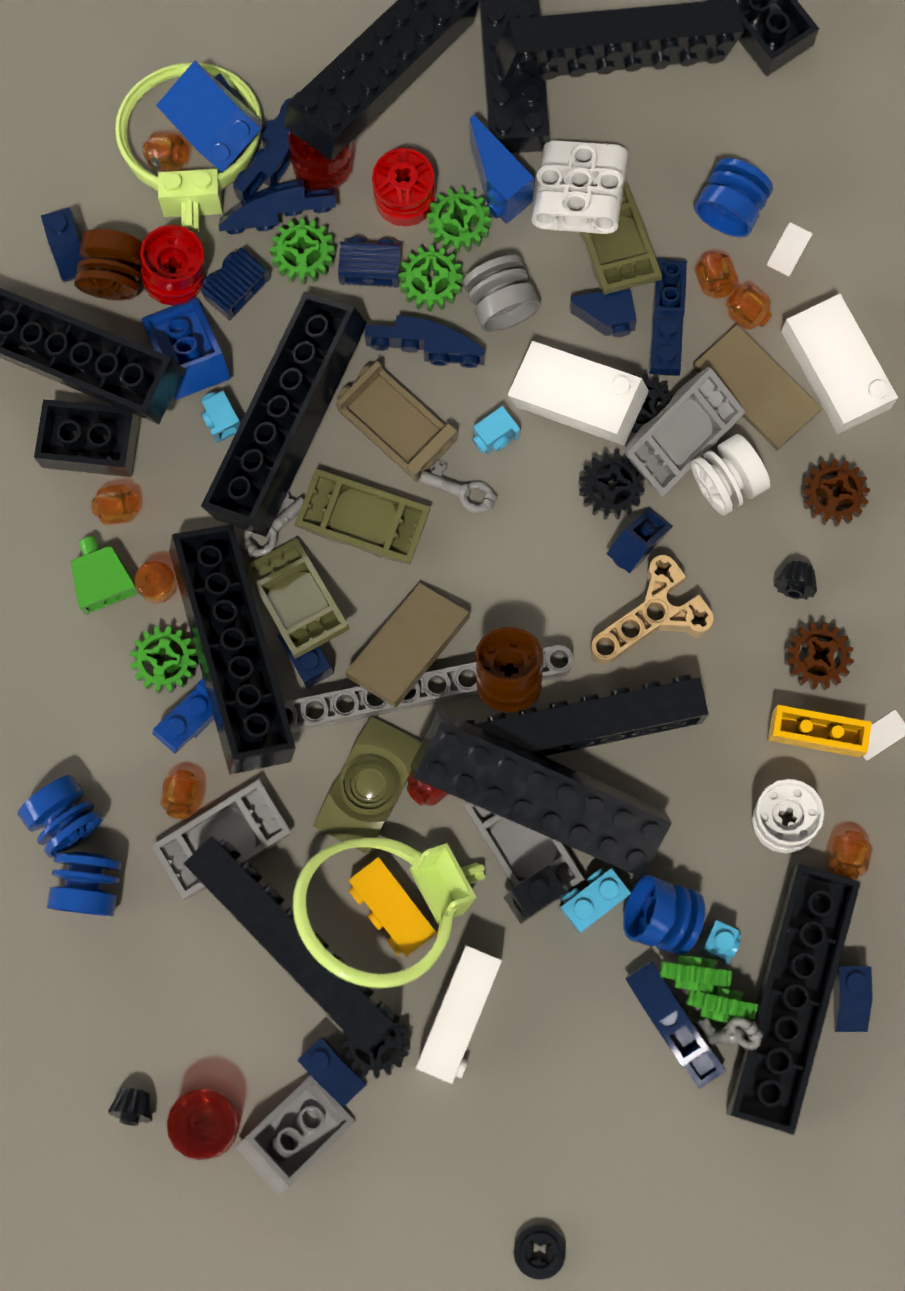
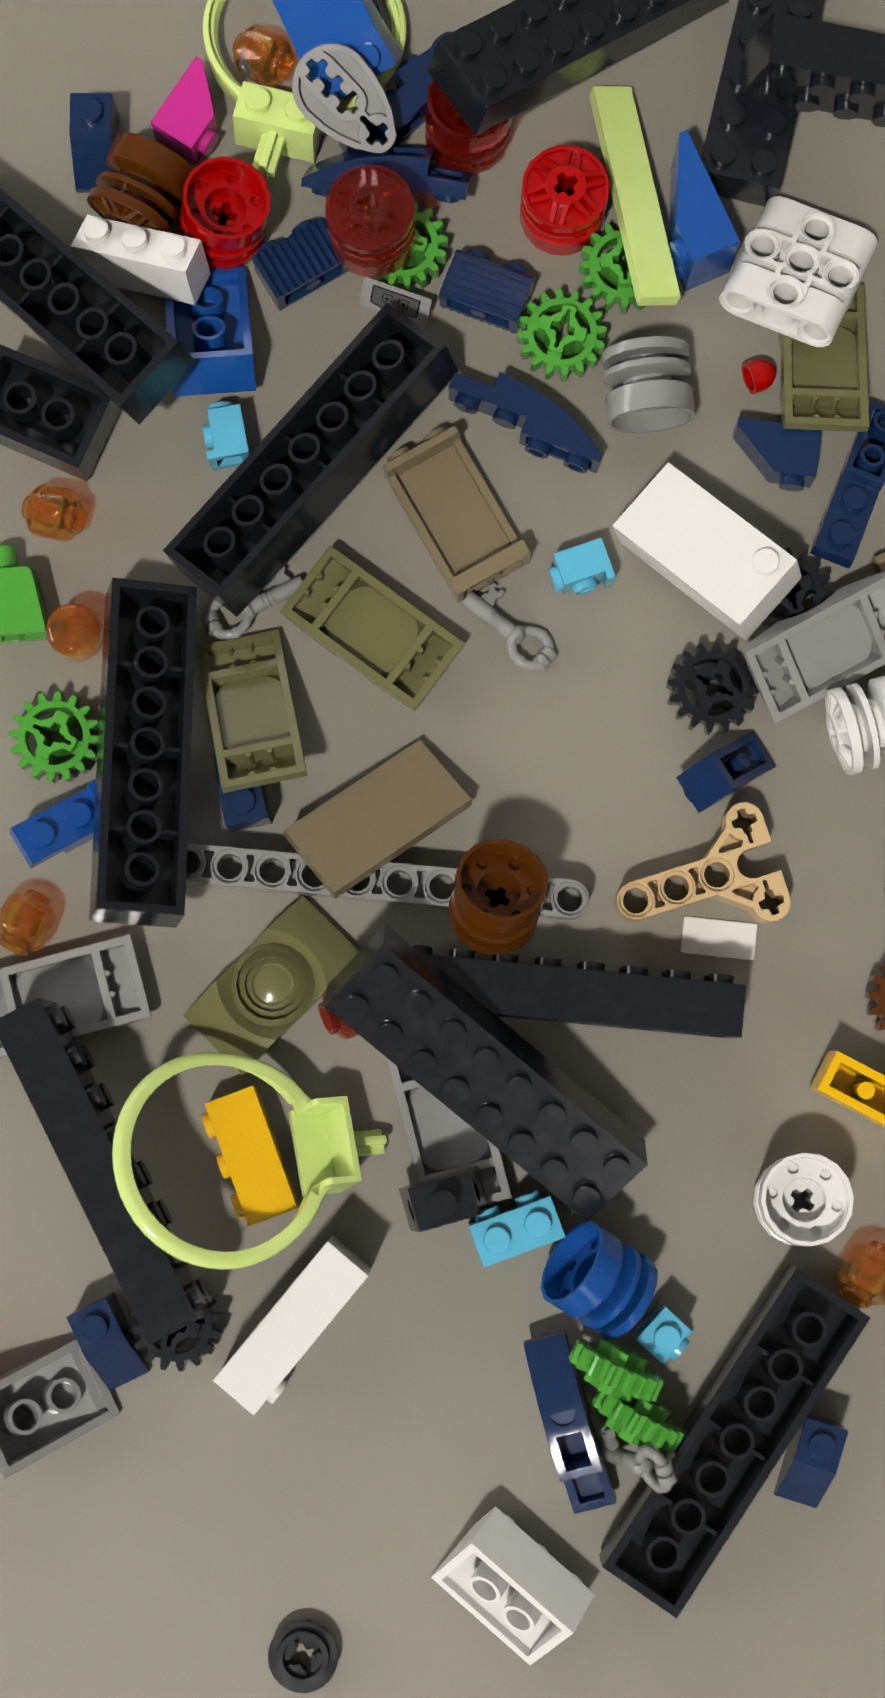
camera: 15 degrees right, 5 degrees up
(126, 207) = (187, 116): none -> dark pink slope
(127, 311) = (144, 258): none -> white brick
(236, 145) = (323, 110): none -> light grey piece
(281, 254) = (374, 243): none -> clear red wheel
(294, 289) = (413, 306): none -> sticker
(451, 170) = (634, 196): none -> yellowish green tile
(574, 265) = (758, 375): none -> red hinge
(671, 656) = (718, 938): none -> white sticker
(673, 1154) = (514, 1586): none -> white slope

